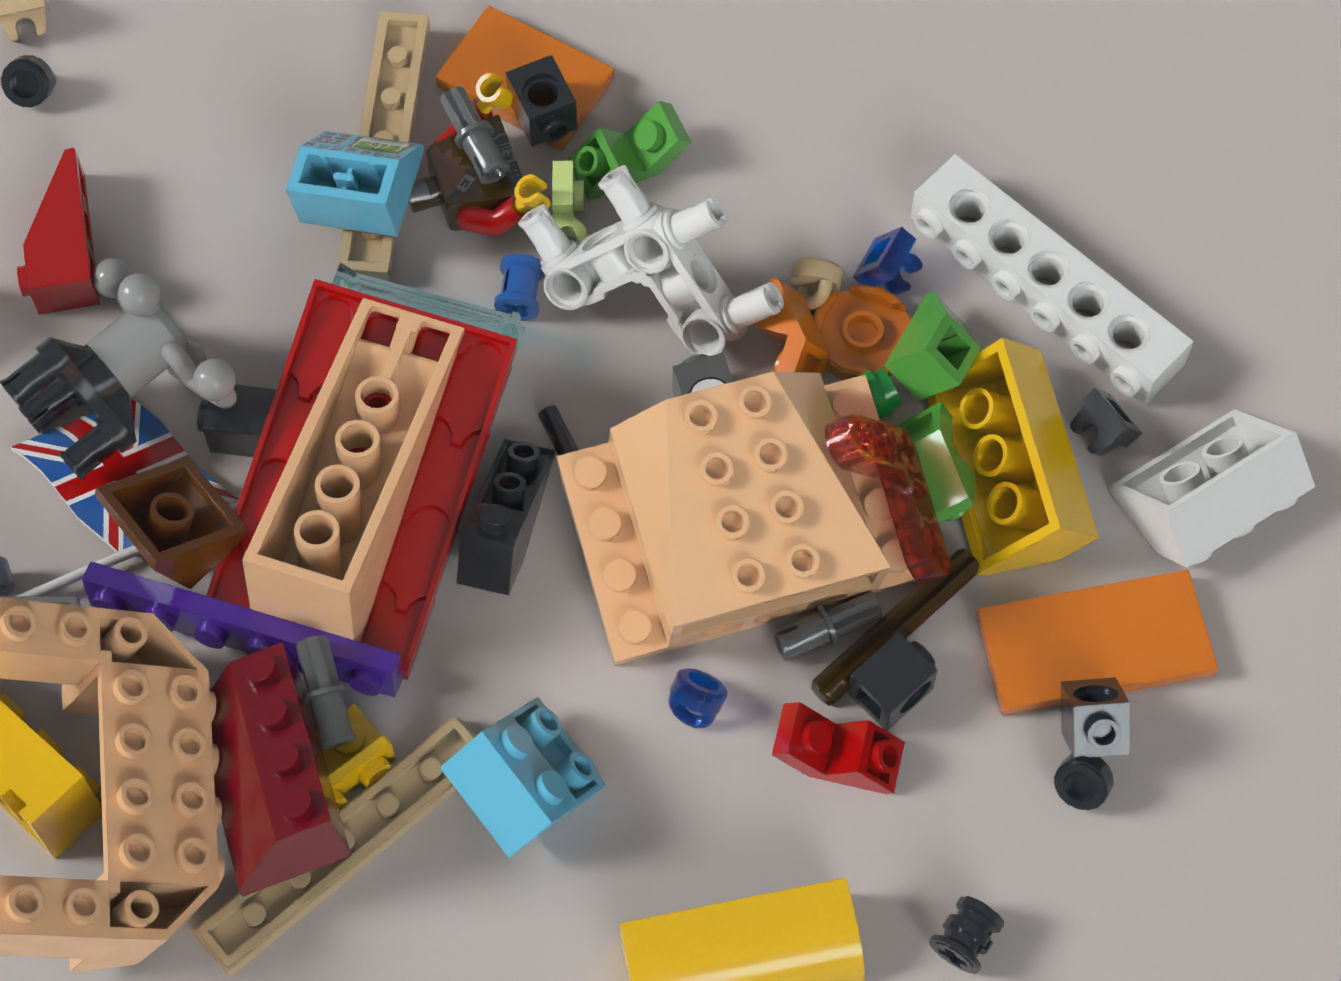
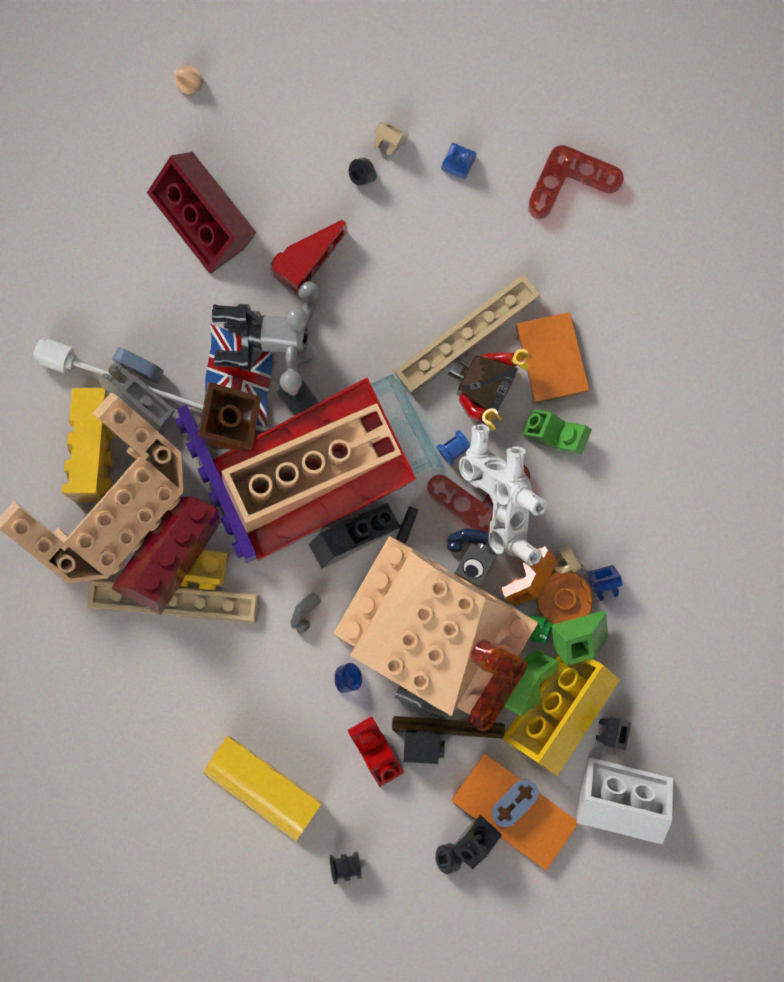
camera: 50 degrees right, 15 degrees up
(325, 692) = (214, 542): dark grey axle -> none
(354, 182) = (434, 342): medium azure slope -> none
(474, 136) = (495, 370): dark grey axle -> none
(522, 776) = (253, 645): medium azure slope -> none
(538, 84) = (546, 369): black brick -> none
(540, 674) = (301, 610): none -> dark grey arm
(566, 199) = (510, 428): yellowish green plate -> none
(629, 331) = (476, 506): none -> clear red beam
(653, 375) = (465, 535): none -> dark blue arm
(1000, 222) = (665, 581): white brick -> none
(1073, 624) = (520, 807): none -> sand blue beam

